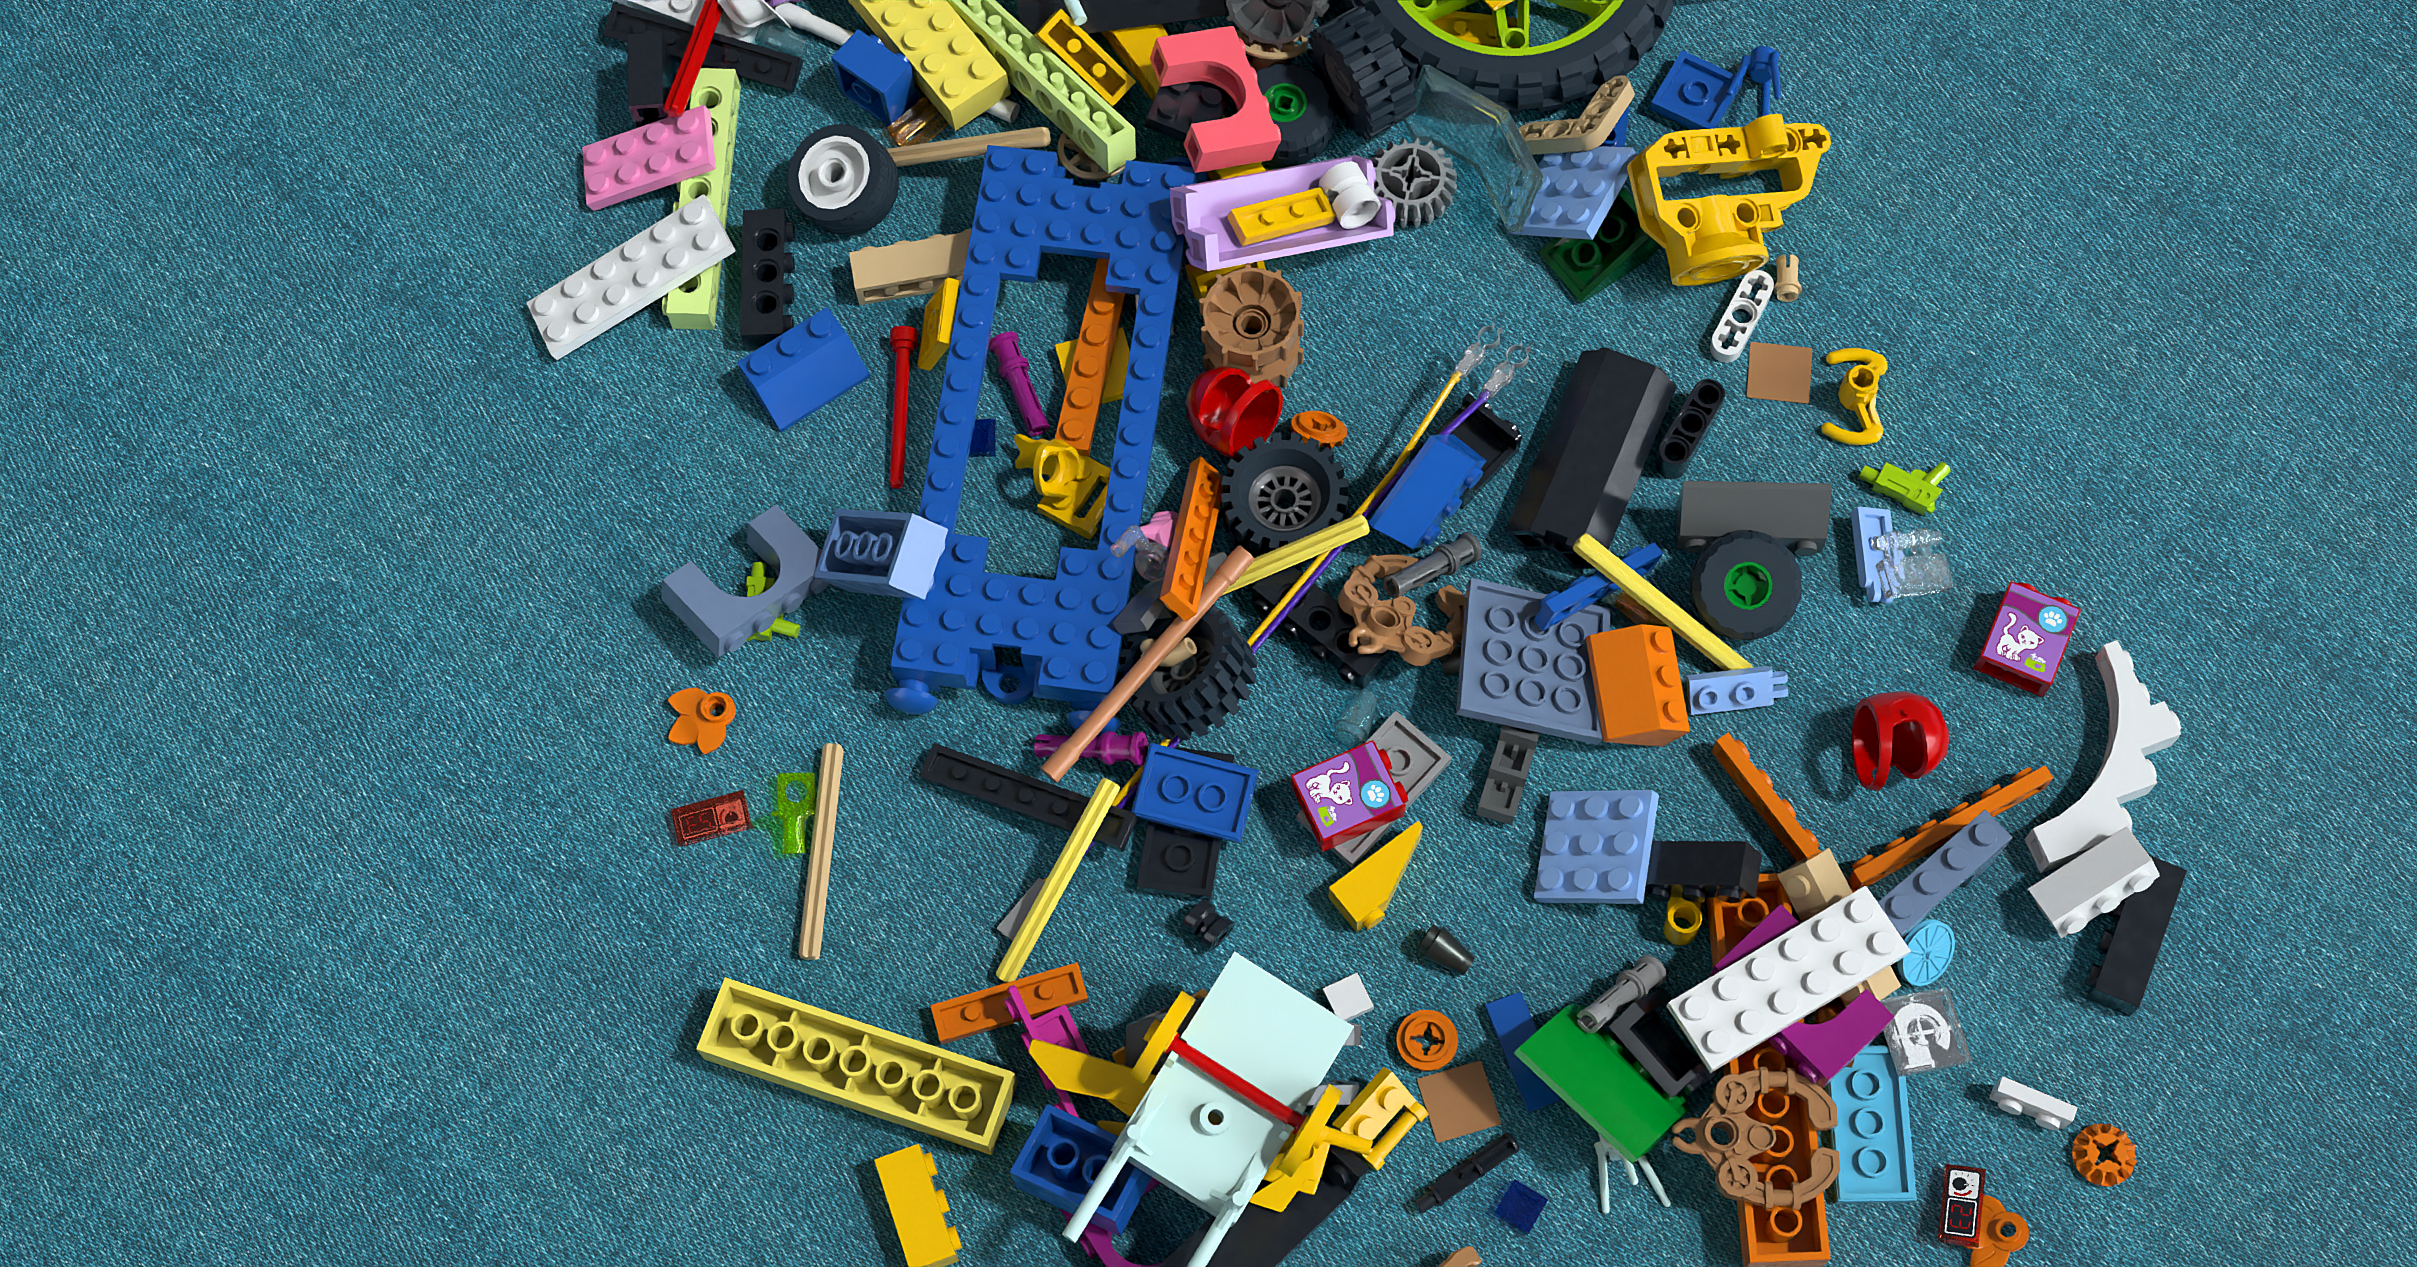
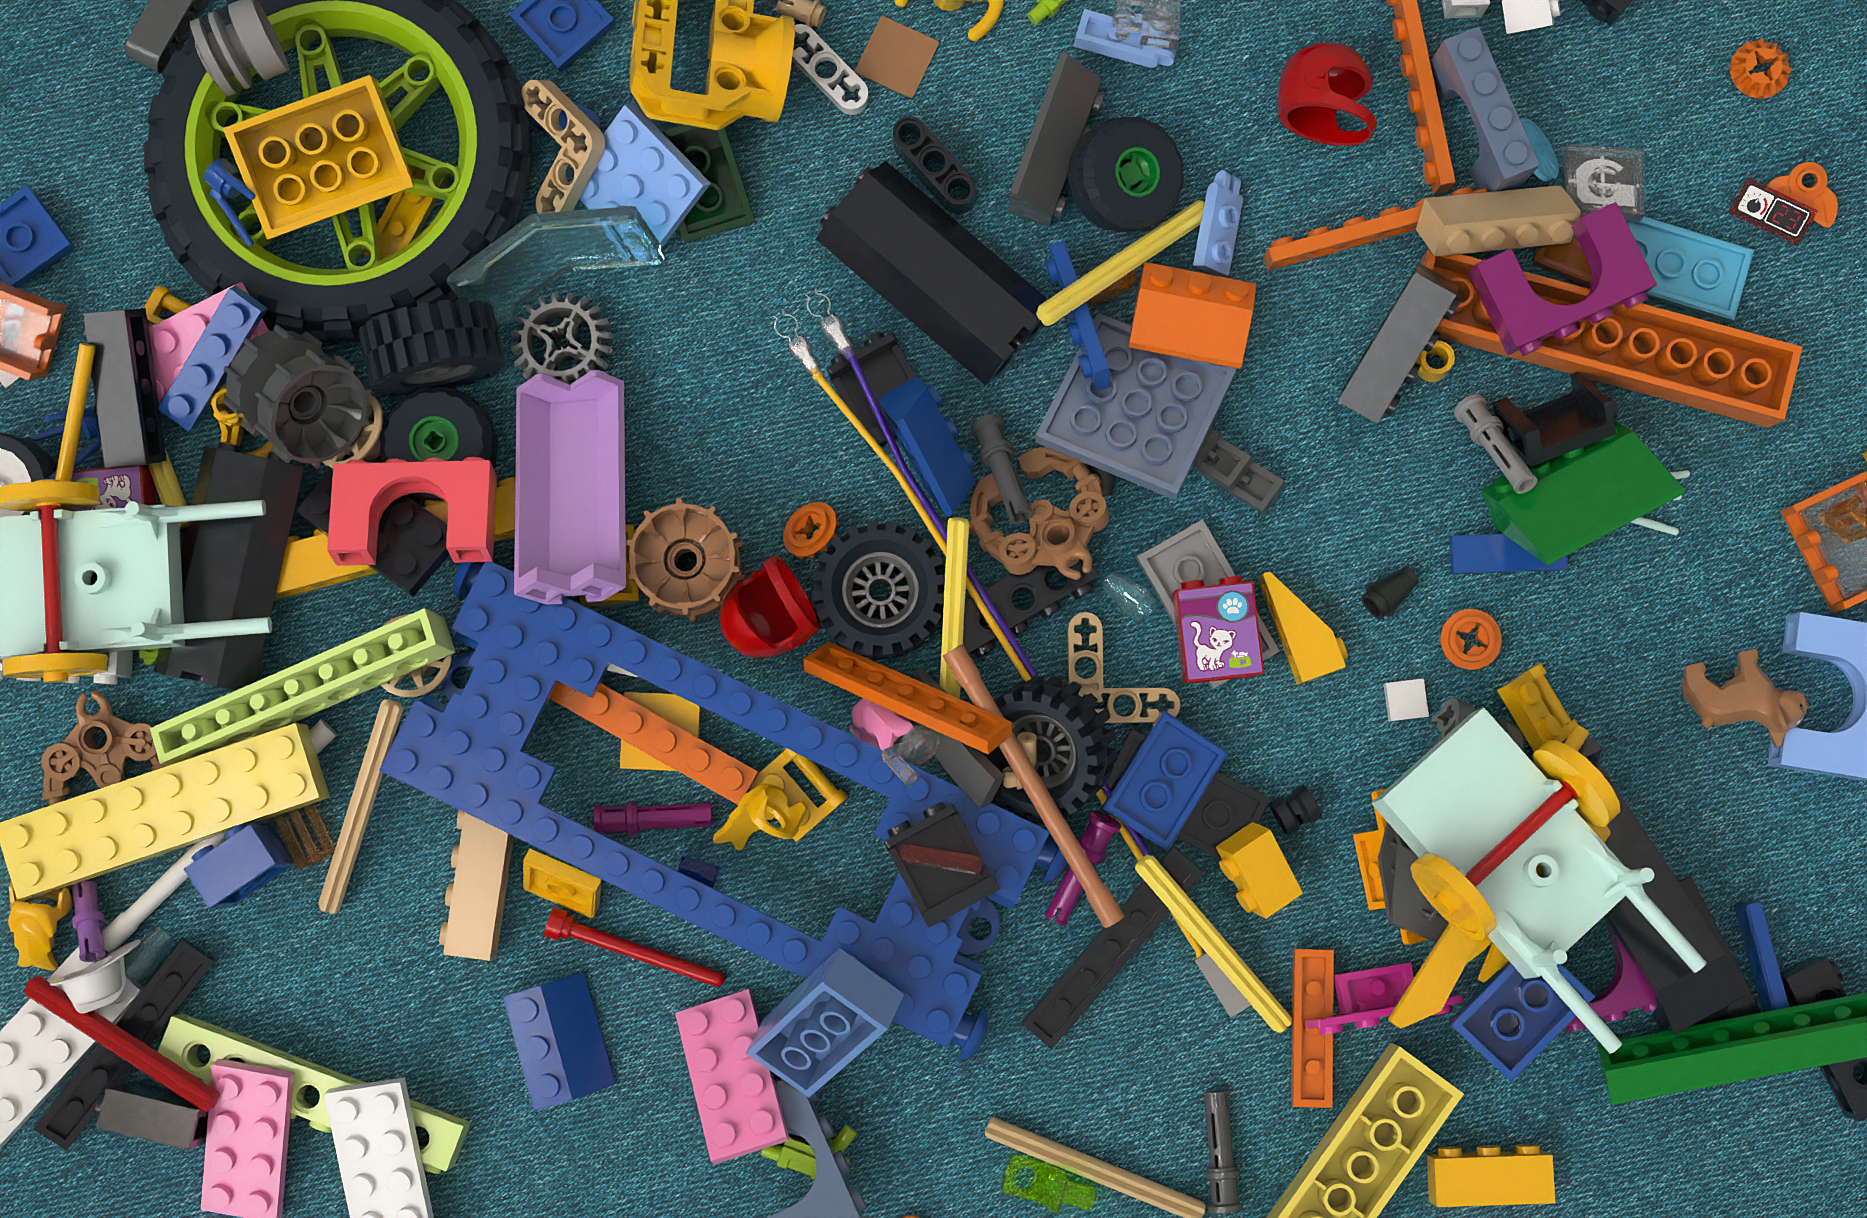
camera: 75 degrees left, 15 degrees up
(759, 231) = (376, 1044): black brick -> none
(801, 513) = (731, 1089): none -> bright pink plate
(843, 179) = (350, 964): wheel -> none
(853, 961) = (1222, 1171): none -> dark grey pin
(1052, 602) = (936, 890): none -> black panel
(1054, 596) = (942, 859): none -> clear red tile
(1084, 57) = (301, 635): yellow brick -> none
(1138, 902) = (1258, 870): none -> yellow brick
(1263, 715) = (1095, 684): none -> tan beam
(1281, 216) = (573, 488): yellow plate -> none
(1350, 195) = (567, 410): white wheel -> none
(1459, 1101) = (1533, 629): medium nougat sticker -> none
(1467, 1172) = (1606, 645): black piece -> none
(1521, 1206) = (1651, 607): clear blue tile -> none
(1596, 847) = (1342, 414): light blue plate -> none
(1747, 1137) = (1674, 379): medium nougat piece -> none
(1788, 978) = (1554, 284): white plate -> none
(2018, 1098) = (1712, 102): white plate -> none

